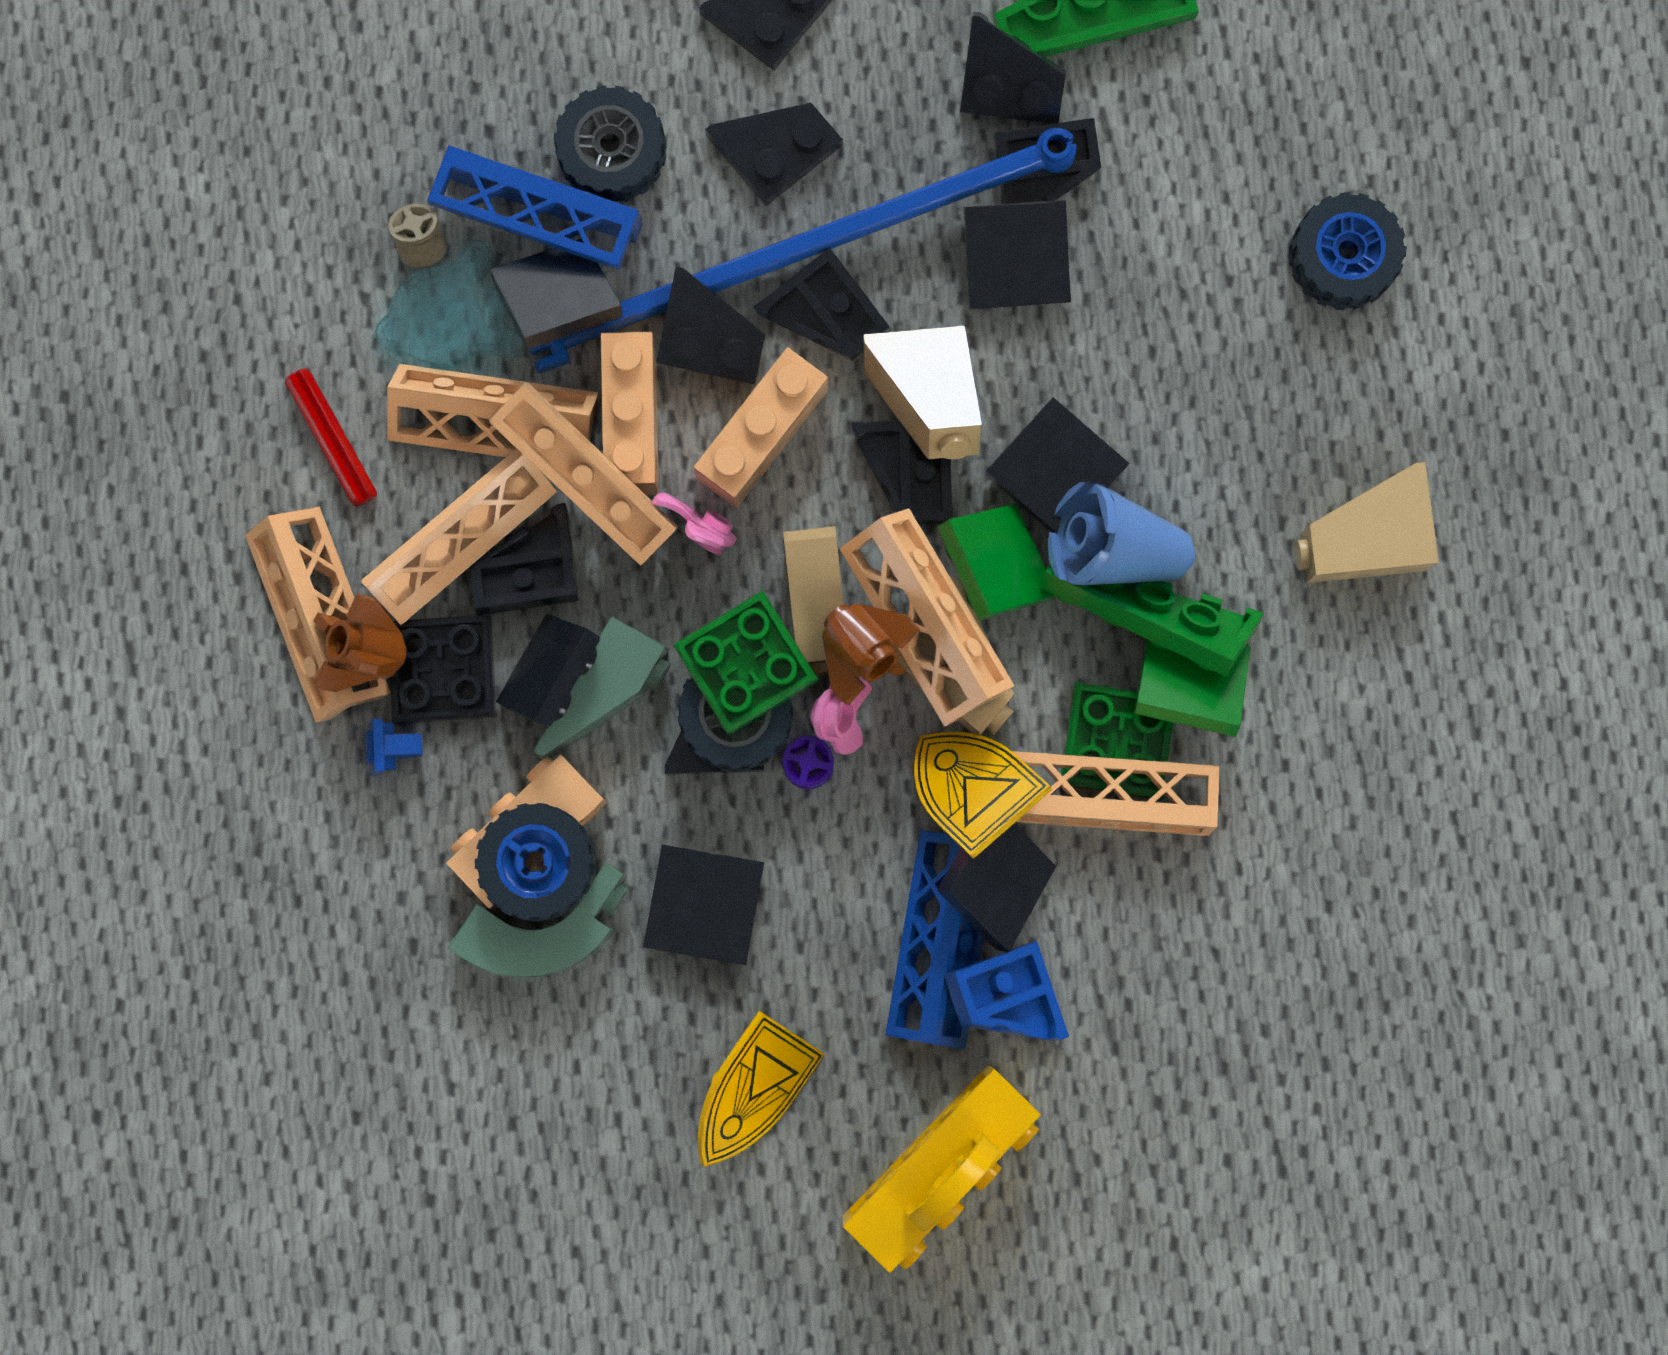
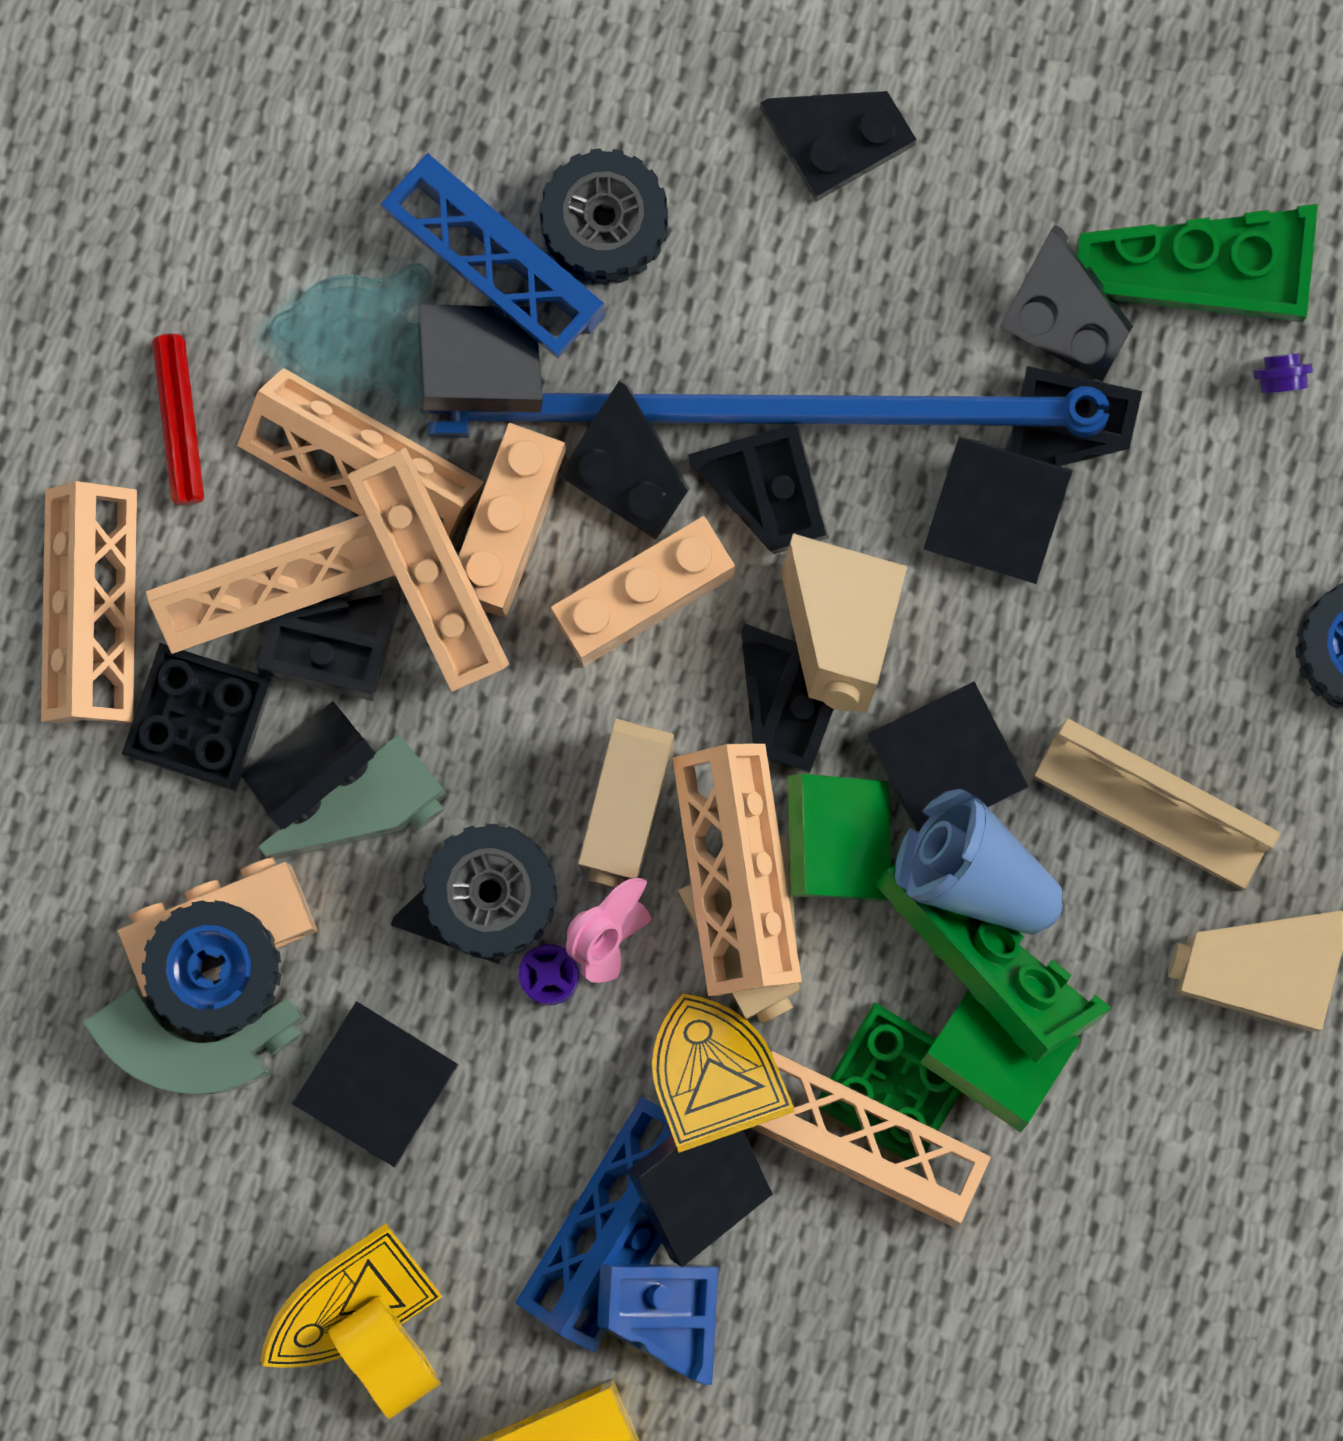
camera: 25 degrees right, 0 degrees up
(362, 646) = (117, 661): dark orange brick -> none
(384, 746) = (102, 777): blue brick -> none
(417, 235) = (356, 237): dark tan wheel -> none
(707, 530) = (539, 679): bright pink plate -> none
(745, 662) = (520, 843): green tile -> none
(775, 147) = (783, 287): black wing -> none
(799, 1120) = (384, 1357): none -> yellow axle
(862, 643) = (651, 873): dark orange brick -> none
(1197, 63) = (1283, 373): none -> dark purple plate
(1225, 437) = (1155, 804): none -> tan fence

